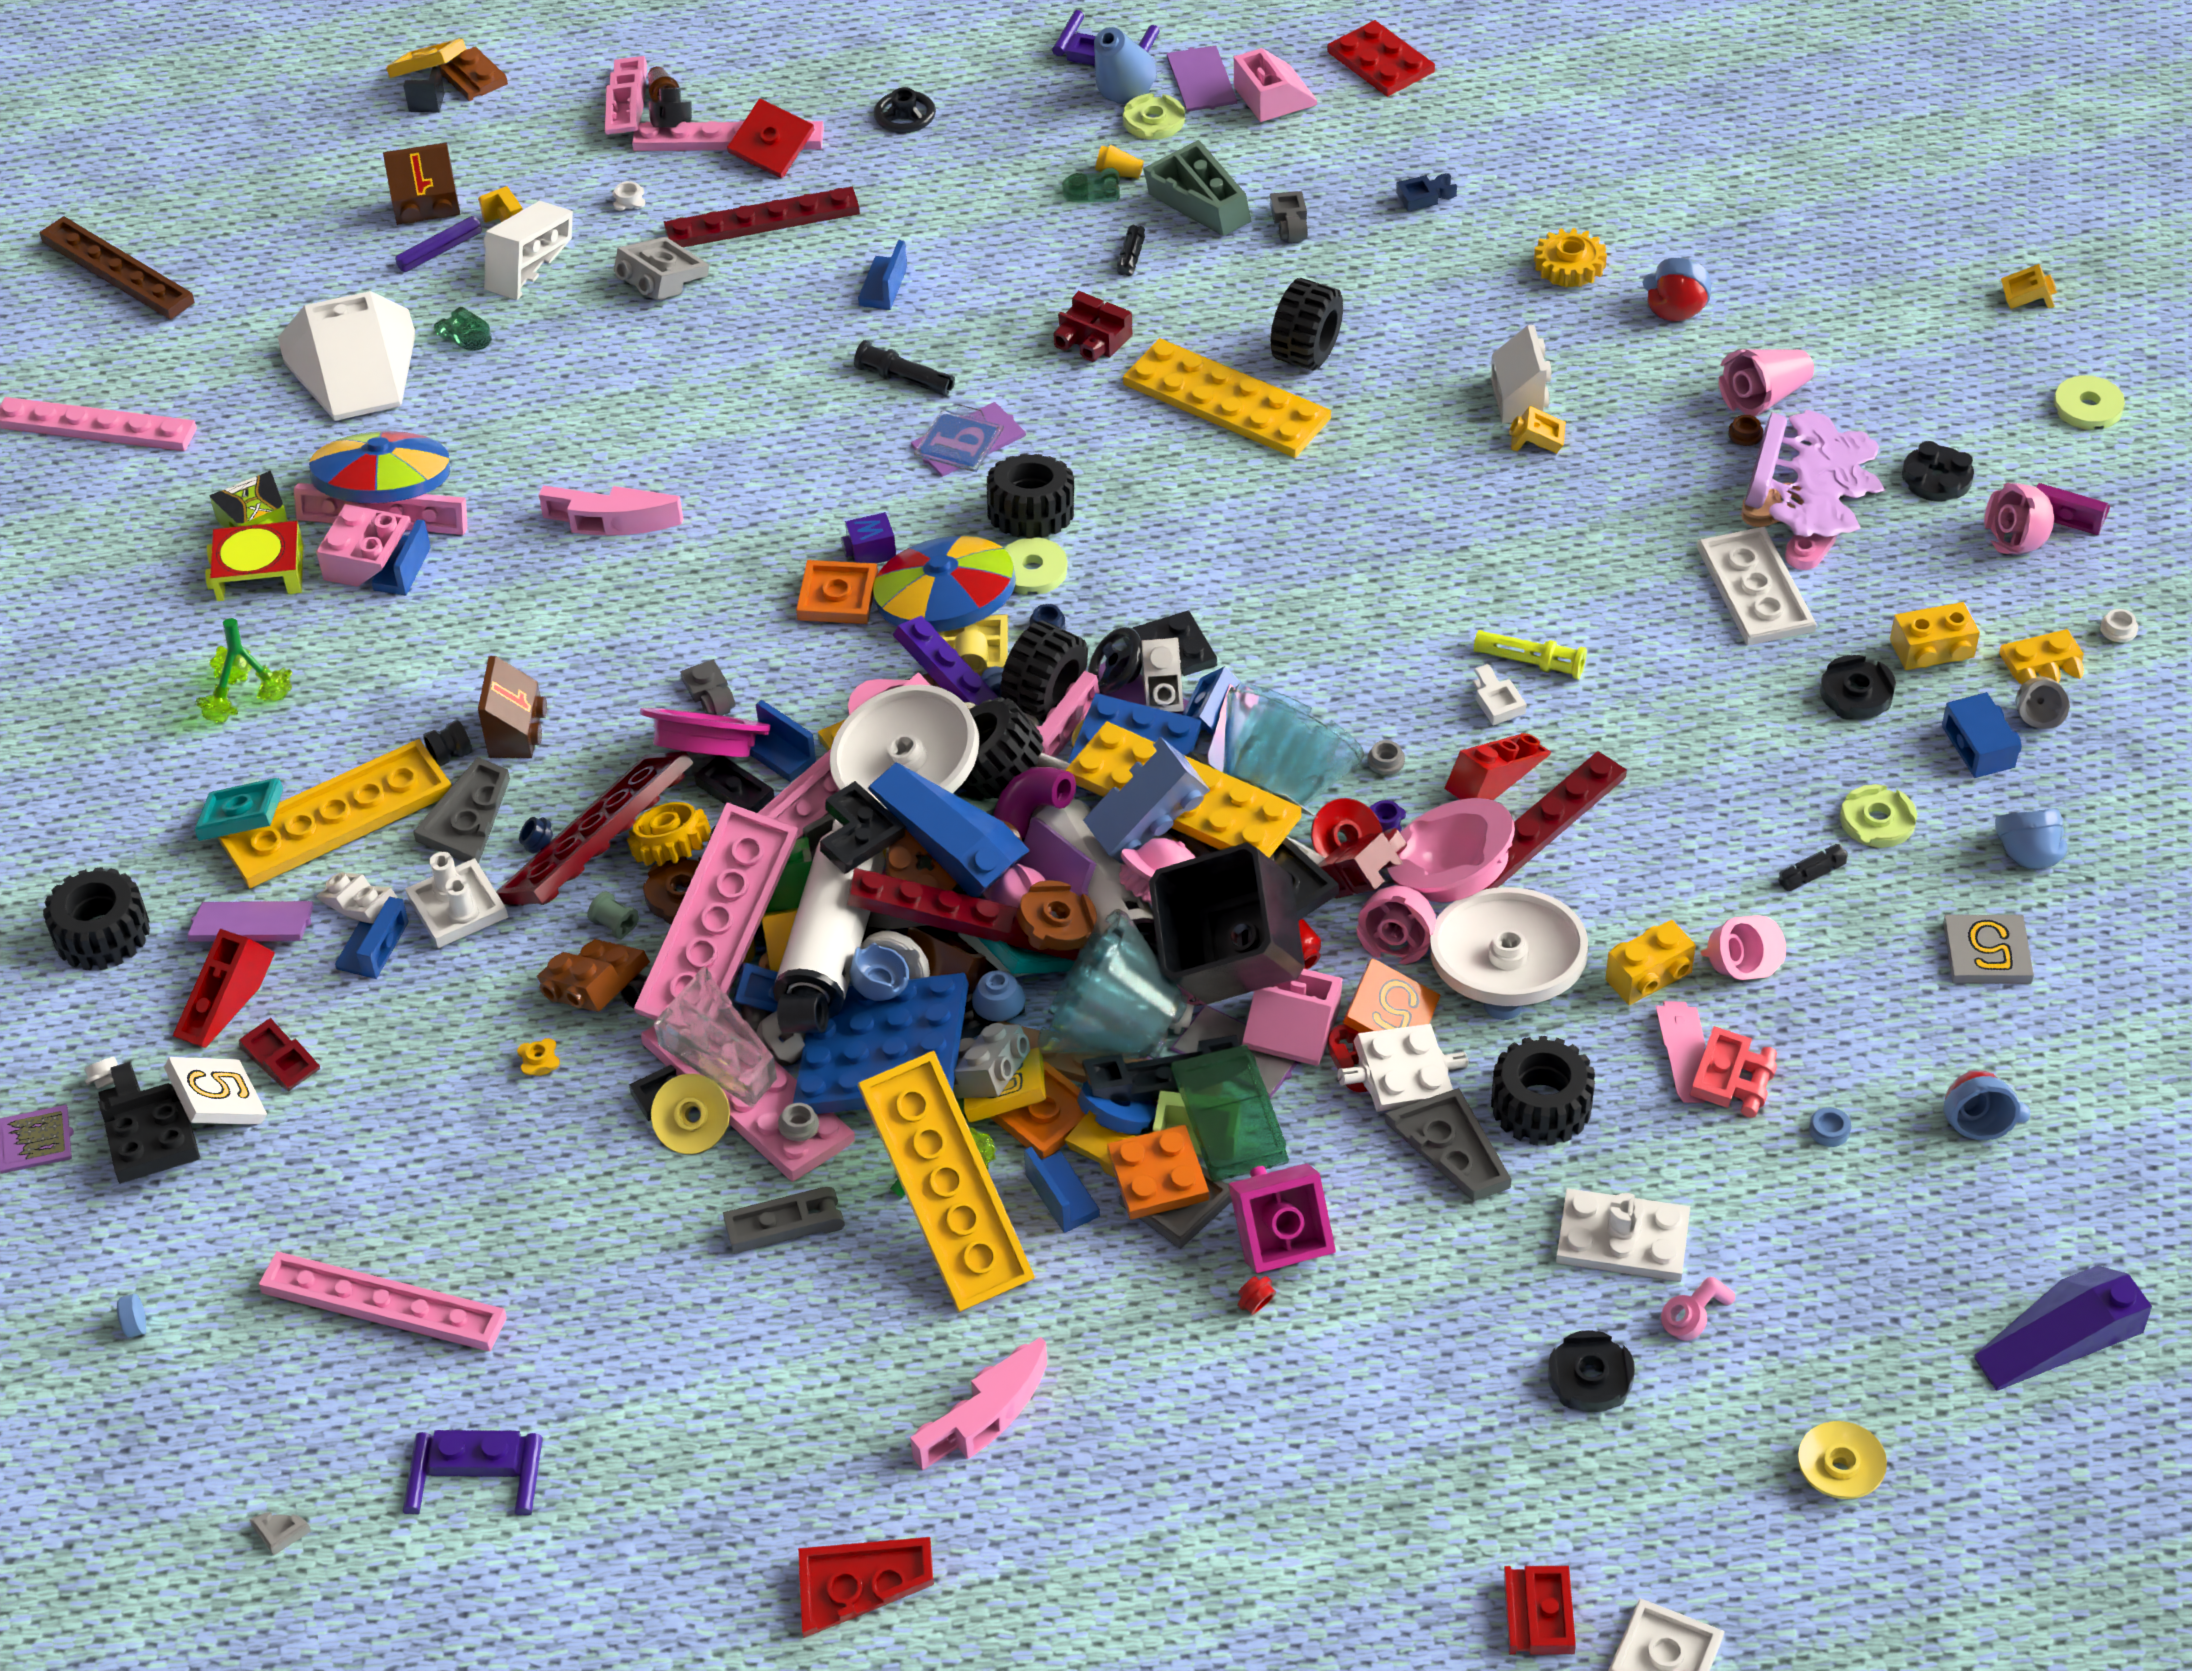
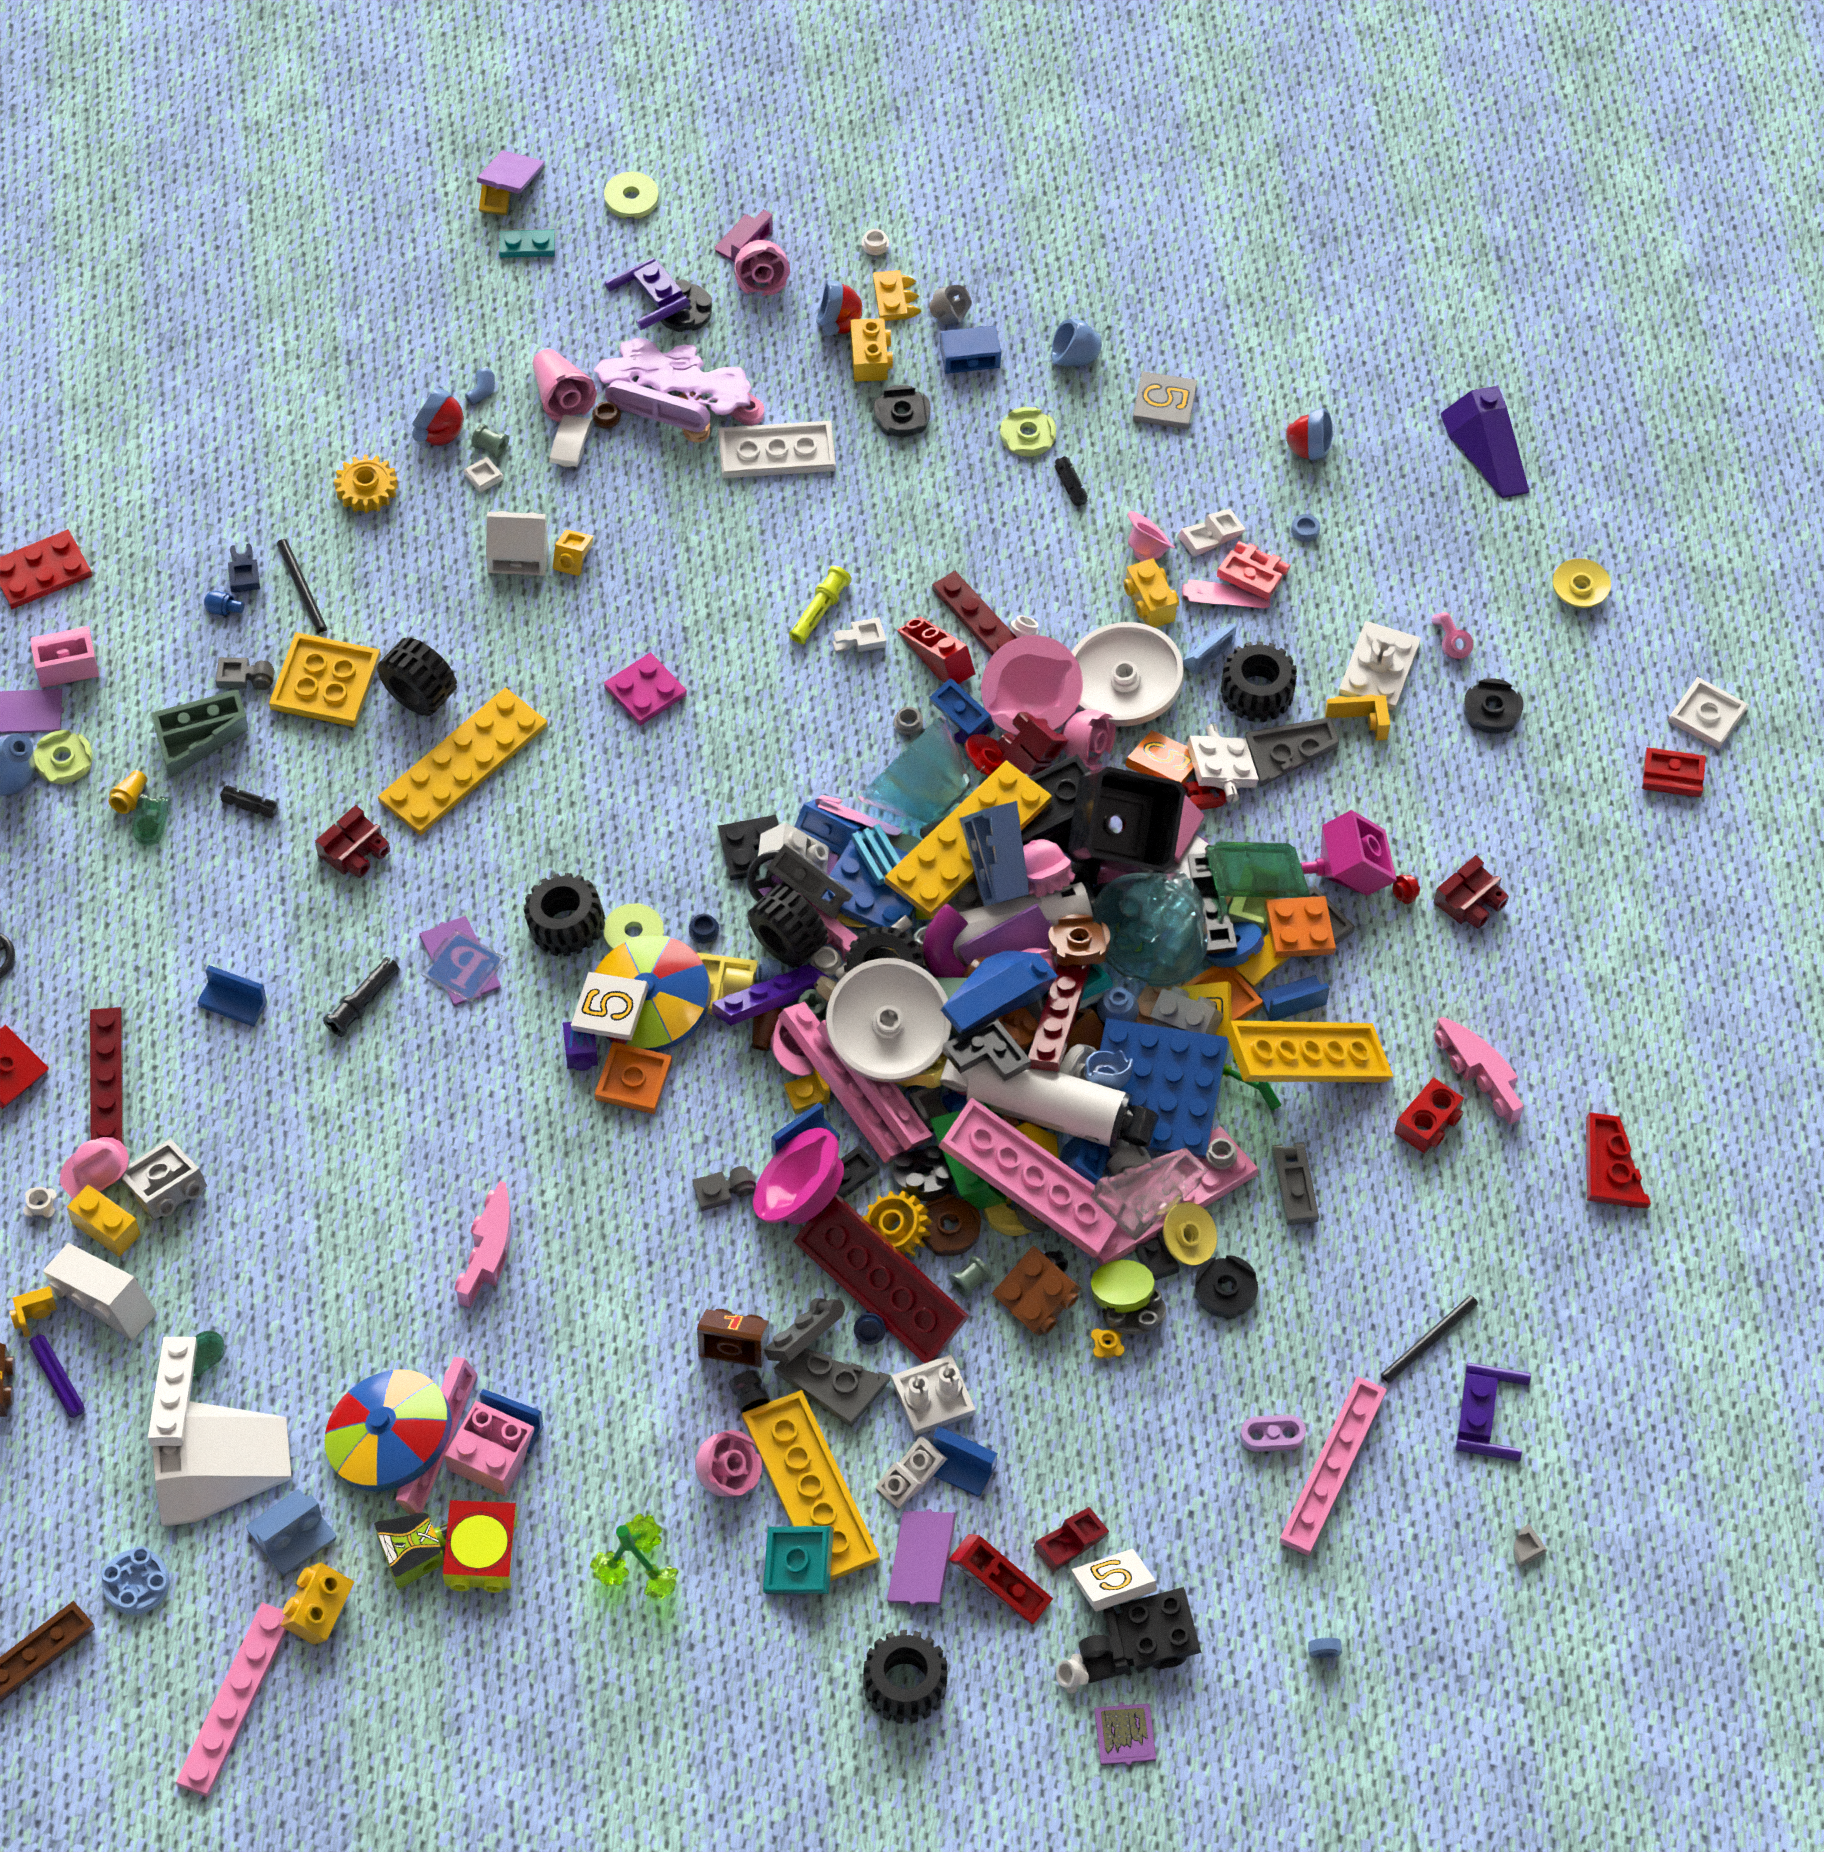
camera: 85 degrees left, 10 degrees up
(185, 450) = (316, 1603): none -> yellow brick
(219, 335) = (135, 1581): none -> light blue tile
(270, 425) = (291, 1531): none -> medium blue bracket
(346, 727) = (728, 1464): none -> bright pink cylinder
(404, 301) = (172, 1391): none -> white plate
(425, 1235) = (1271, 1430): none -> lavender plate
(522, 771) = (805, 1329): none -> dark grey plate
(574, 1393) = (1429, 1339): none -> black piece
(582, 1075) = (1139, 1321): none -> dark grey dish
(603, 232) = (103, 1220): none -> yellow piece
(609, 1054) = (1122, 1285): none -> lime tile
(630, 1183) = (1223, 1270): none -> black plate
(667, 216) = (94, 1163): none -> bright pink piece
(904, 537) = (609, 1006): none -> white tile
(905, 1346) = (1424, 1113): none -> red brick
(1101, 672) = (809, 880): none -> dark grey plate
(1167, 722) = (869, 836): none -> medium azure tile
(1266, 1366) = (1468, 891): none -> dark red hips
(1283, 259) = (325, 679): none -> yellow plate
(1366, 525) = (645, 689): none -> dark pink plate
(1374, 185) = (221, 602): none -> blue cylinder
(1409, 793) = (961, 708): none -> blue panel
(1421, 240) = (301, 585): none -> black piece
(1532, 1234) = (1369, 705): none -> yellow bracket
(1558, 846) = (1024, 626): none -> white plate
(1590, 1042) = (1210, 649): none -> light blue slope
(1623, 349) = (483, 474): none -> white tile
(1666, 339) = (489, 440): none -> sand green bush
(1684, 403) = (570, 441): none -> white slope
(1746, 328) = (484, 387): none -> medium blue arm
(1789, 1029) = (1215, 531): none -> white slope
(1943, 438) = (659, 288): none -> dark purple plate
(1973, 329) = (526, 243): none -> teal plate
(1989, 594) = (838, 308): none -> piece
(2062, 287) = (510, 171): none -> piece

